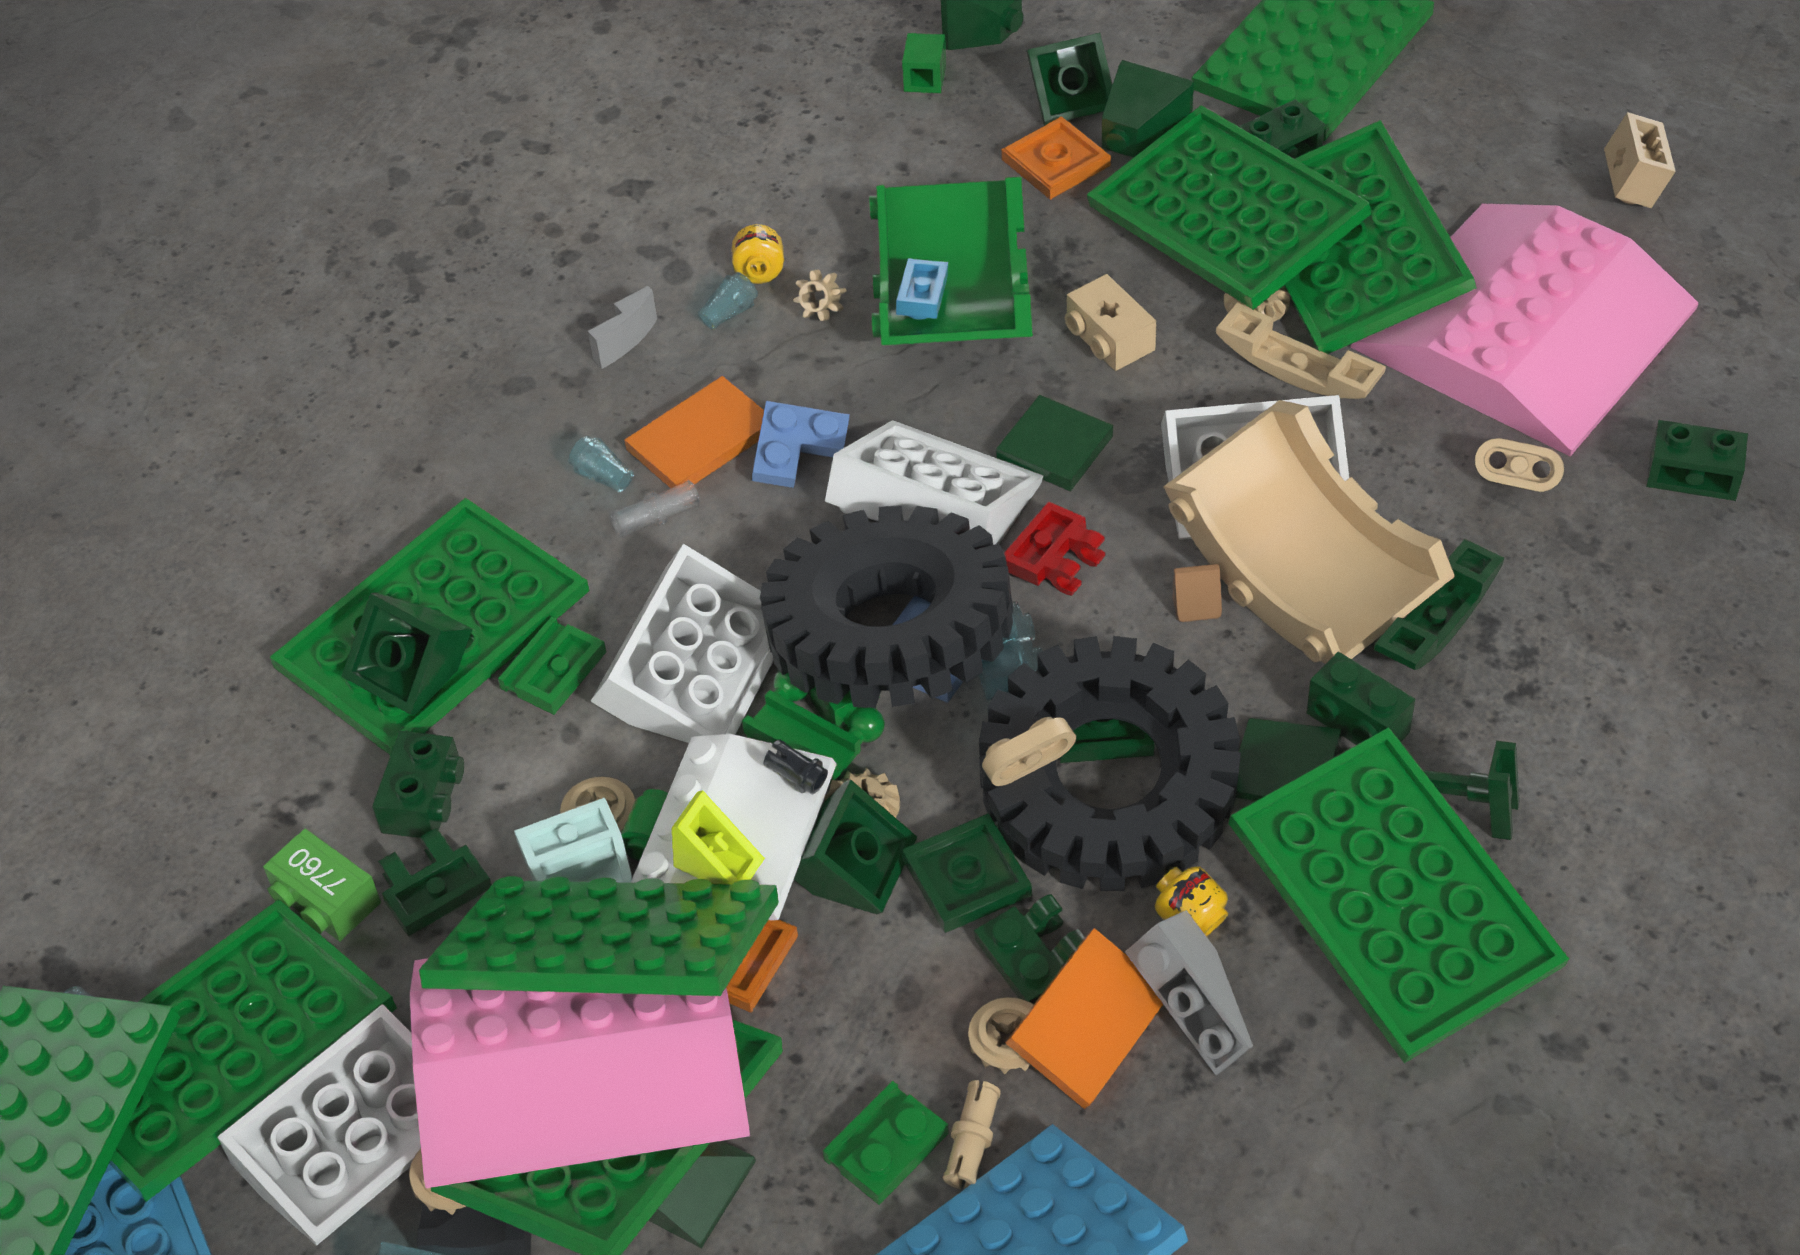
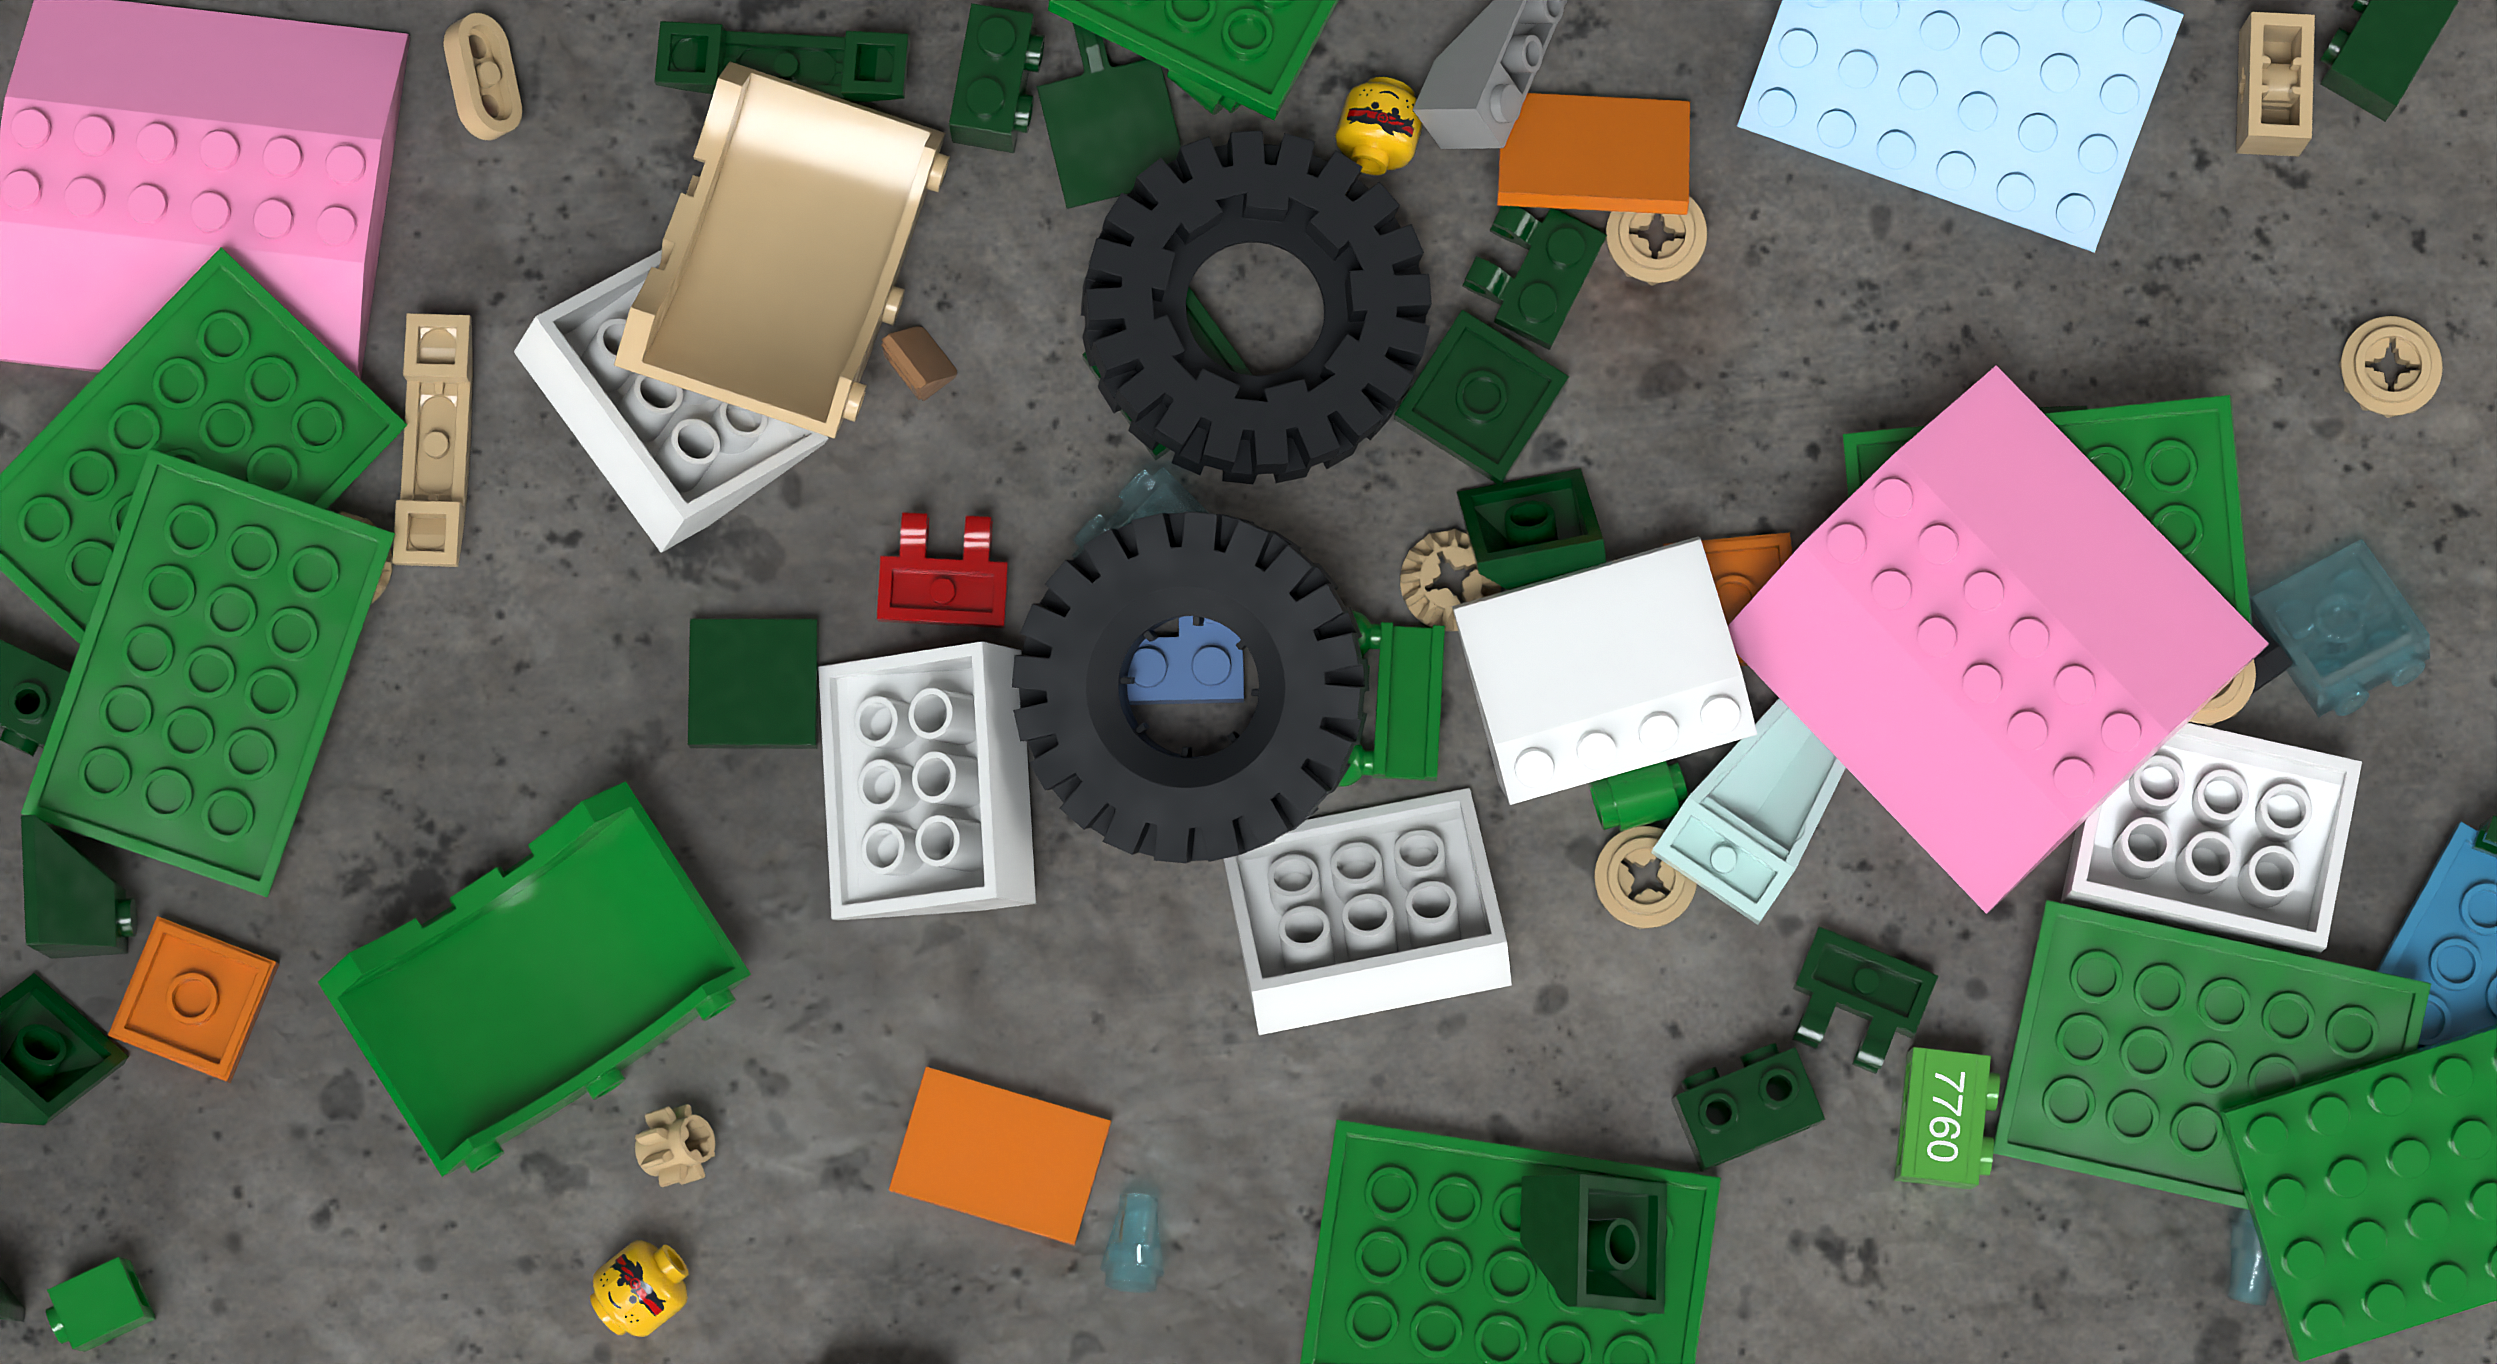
camera: 125 degrees left, 30 degrees up
(552, 665) = (1481, 1077): green plate -> none
(603, 937) = (1876, 669): green plate -> none
(655, 508) = (1165, 1122): clear pin -> none
(711, 845) = (1680, 636): neon yellow slope -> none
(730, 298) = (745, 1275): clear light blue cone -> none
(793, 430) = (945, 1031): medium blue plate -> none
(804, 772) = (1506, 626): black pin -> none
(886, 1142) = (1857, 289): green plate -> none
(922, 289) = (596, 1001): dark azure plate -> none
(971, 1134) = (1800, 200): tan pin -> none
(1029, 751) = (1315, 355): tan plate -> none
(1110, 322) = (502, 688): tan brick -> none

